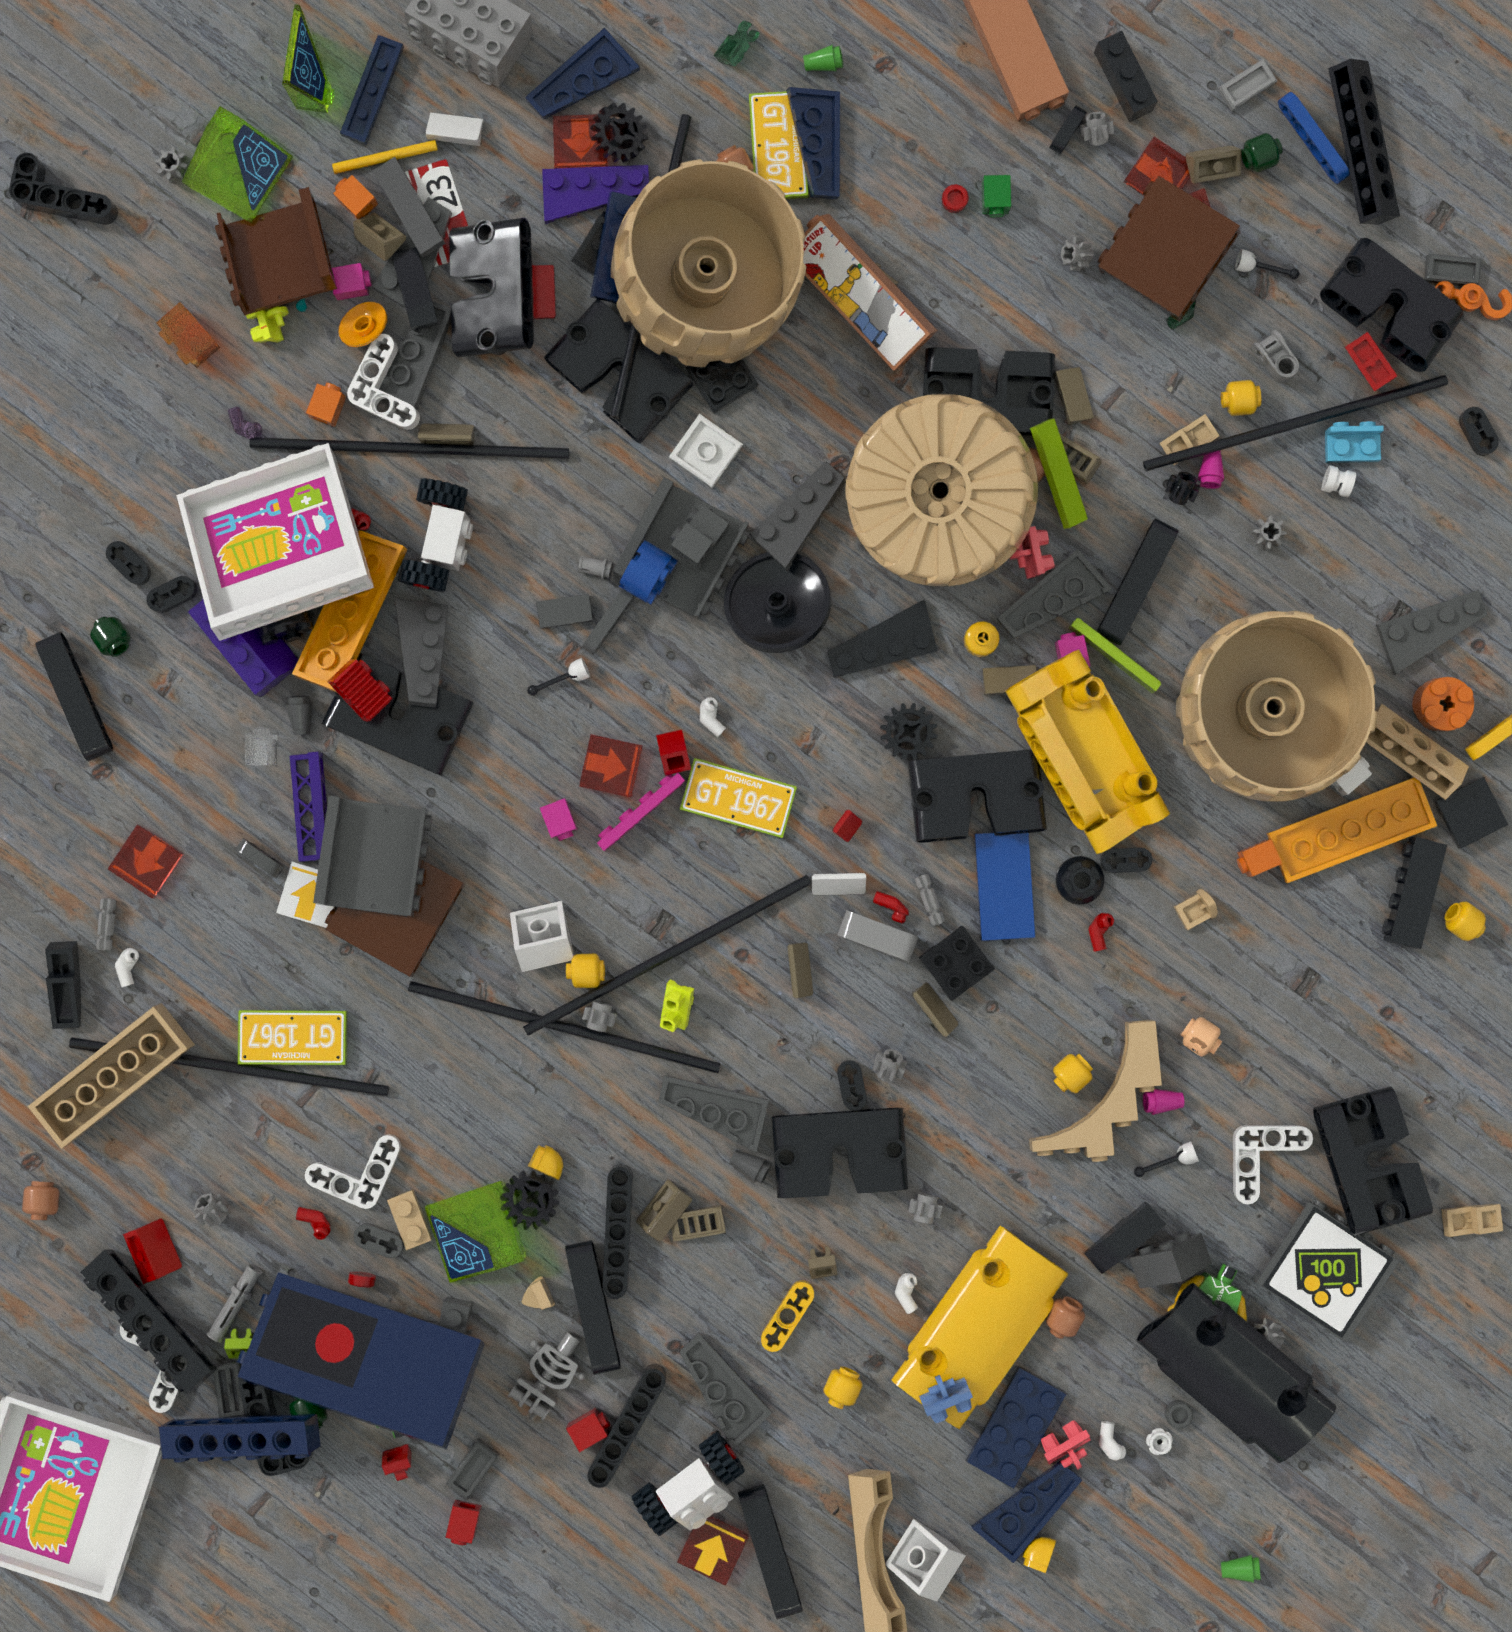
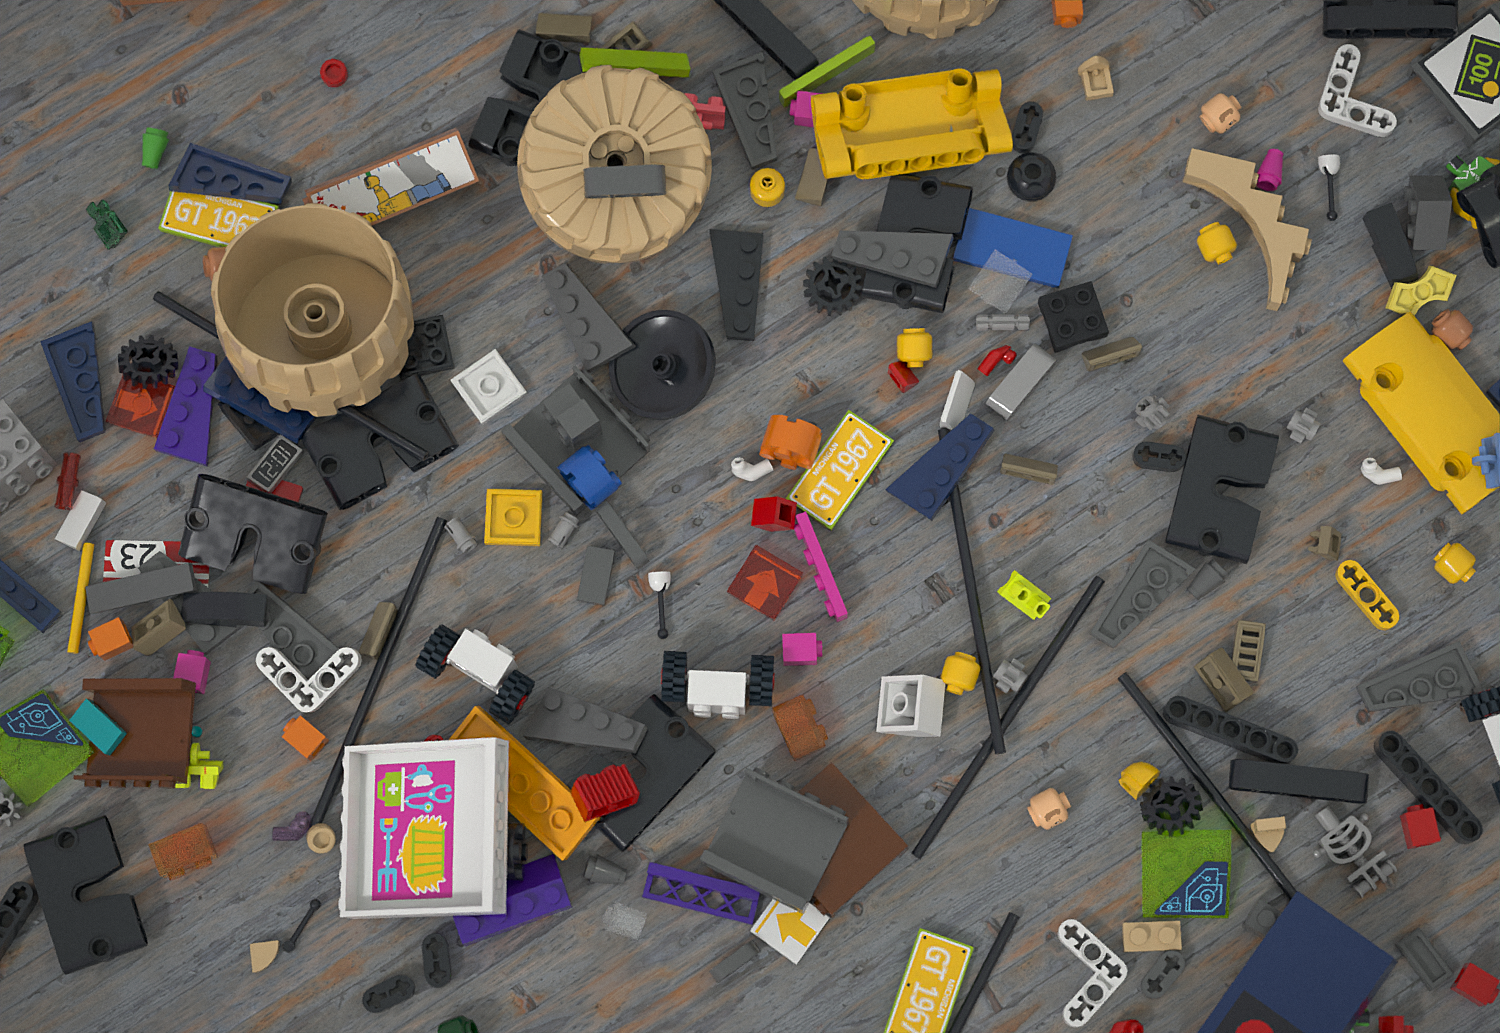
camera: 65 degrees left, 10 degrees down
(94, 261) = (59, 879): none -> black connector
(125, 440) = (263, 954): none -> tan tile
(142, 460) = (289, 945): none -> black hinge
(243, 452) = (321, 838): none -> tan tile
(272, 217) = (98, 726): none -> teal tile
(361, 1279) = (1197, 1004): red tile -> none
(362, 324) = (239, 674): light orange dish -> none
(485, 103) = (67, 481): none -> clear red pin
(487, 842) = (799, 727): none -> clear orange brick
(490, 1091) = (1049, 808): none -> light nougat head
(491, 756) = (717, 690): none -> brick
(558, 476) = (461, 535): none -> light grey pin
(559, 1231) = (1207, 785): none -> black piece
(565, 284) = (275, 464): none -> tile
(592, 517) = (513, 517): none -> yellow tile
(744, 745) = (791, 442): none -> orange brick
(767, 889) = (939, 470): none -> dark blue wing
(876, 827) = (914, 347): none -> yellow head
(916, 505) = (624, 181): none -> dark grey beam
(956, 785) = (898, 254): none -> dark grey wing
(967, 885) = (1000, 281): none -> clear piece
(996, 195) = (346, 32): green brick -> none
(1083, 1268) = (1433, 285): none -> light yellow tile
(1098, 928) = (1084, 175): red arm -> none

